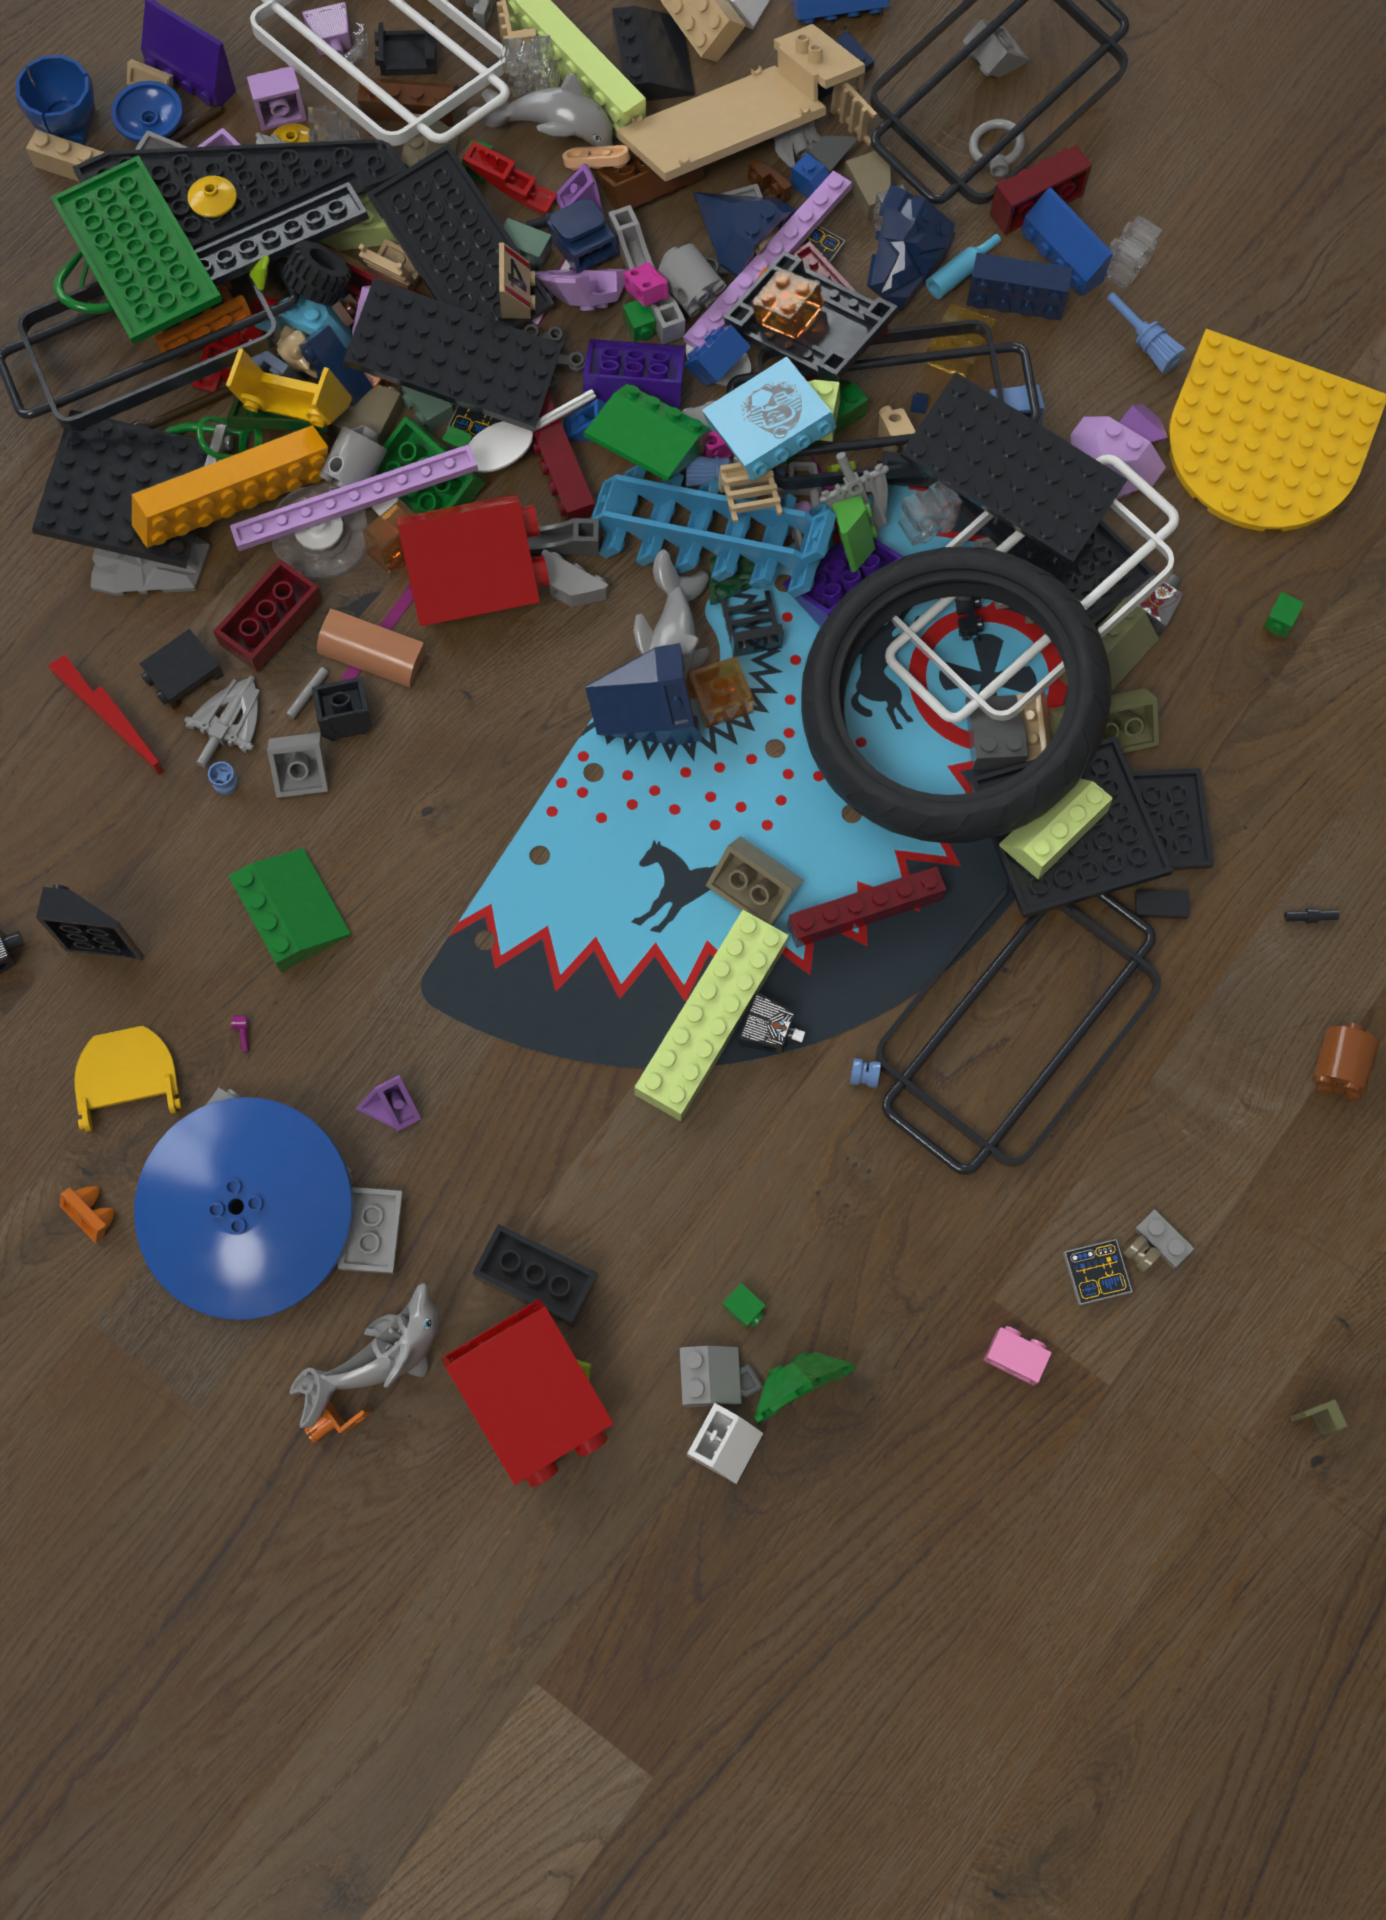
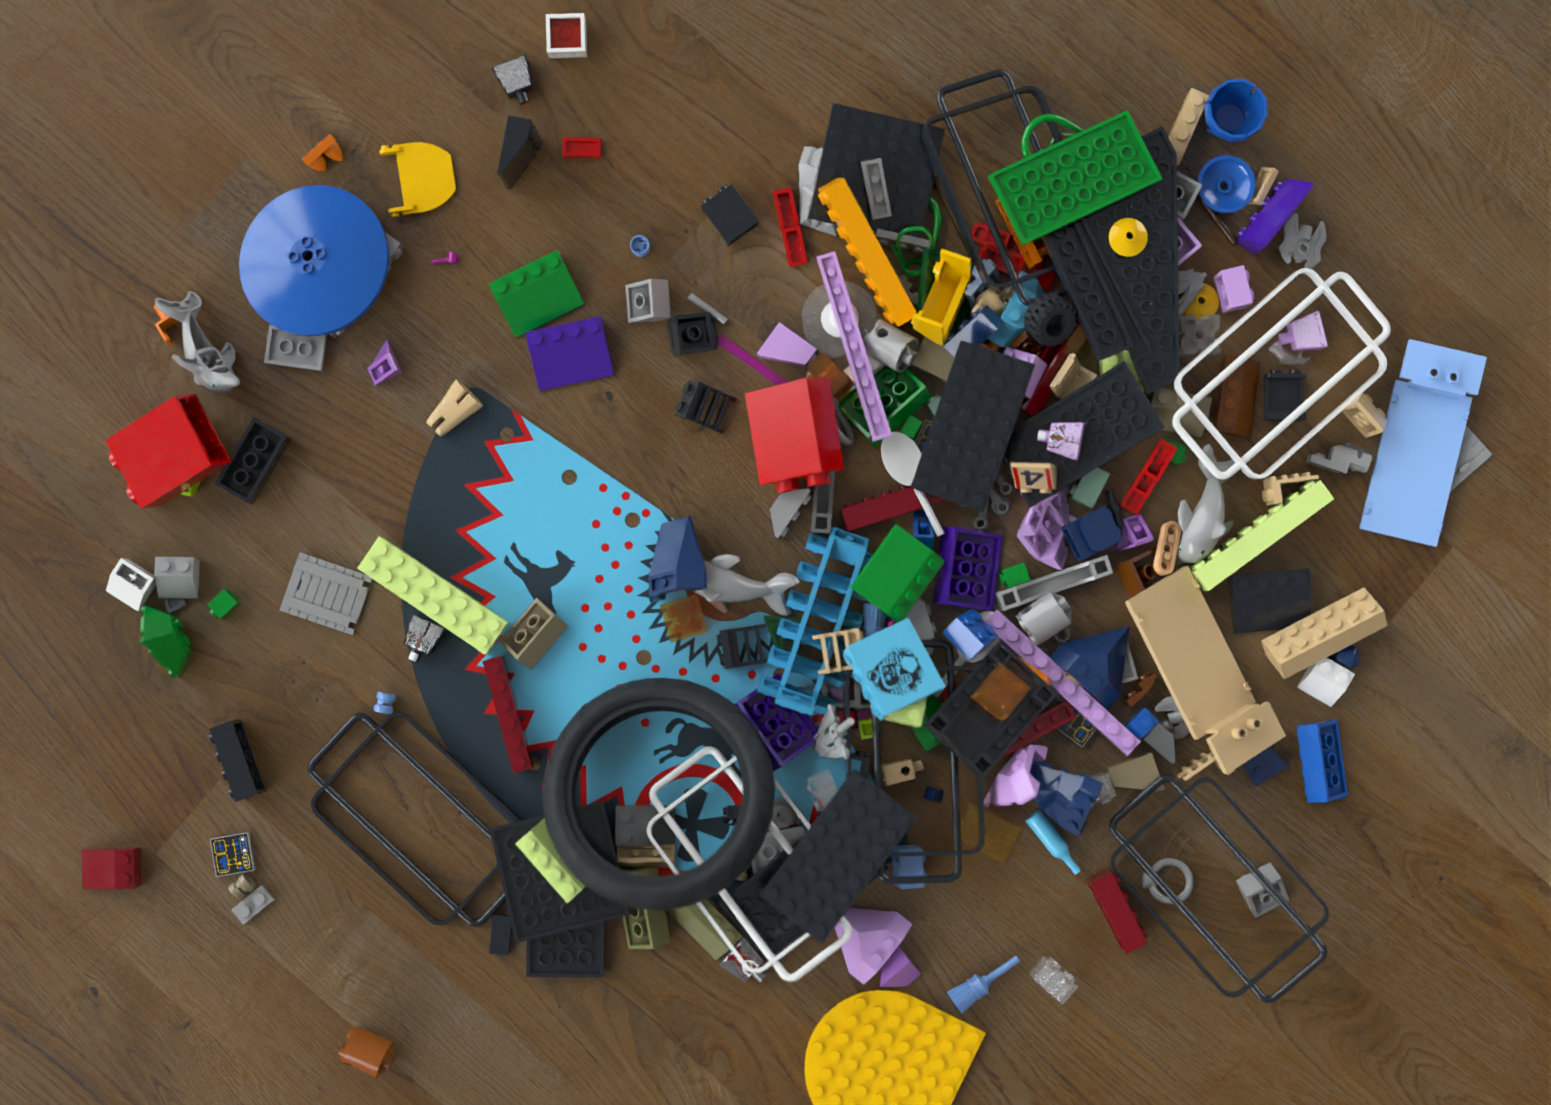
camera: 100 degrees right, 15 degrees up
(87, 863) = (581, 147): none -> red tile
(104, 708) = (700, 159): red slope -> none
(132, 480) = (876, 188): none -> light grey plate
(191, 601) = (790, 226): none -> red slope
(226, 31) = (1300, 244): none -> light grey piece
(237, 697) = (708, 258): light grey bar -> none
(259, 272) = (1051, 275): lime slope -> none
(268, 615) = (768, 280): dark red brick -> none
(357, 588) = (787, 348): none -> lavender slope
(370, 648) = (739, 356): nougat brick -> none
(370, 859) = (569, 353): none -> dark purple slope
(435, 689) = (694, 400): none -> black plate
(450, 1005) = (454, 408): none -> tan piece
(467, 257) = (1063, 439): none -> torso
(529, 65) = (1250, 497): clear brick -> none
(646, 284) = (1038, 582): dark pink piece -> none
(718, 1163) = (325, 593): none -> light grey door
(855, 530) = (805, 730): bright green slope -> none
(899, 283) = (1014, 780): none -> lavender wedge
(965, 1265) = (237, 760): none -> black brick
(1017, 1355) = (176, 791): bright pink brick -> none
(1019, 286) = (1025, 883): dark blue brick -> none
(1067, 241) = (1065, 926): blue slope -> none
(1139, 1446) = (111, 868): none -> dark red slope
(1283, 615) = (727, 1058): green brick -> none
(1311, 915) = (484, 1045): black bar -> none
(1326, 1417) = (121, 994): olive panel -> none

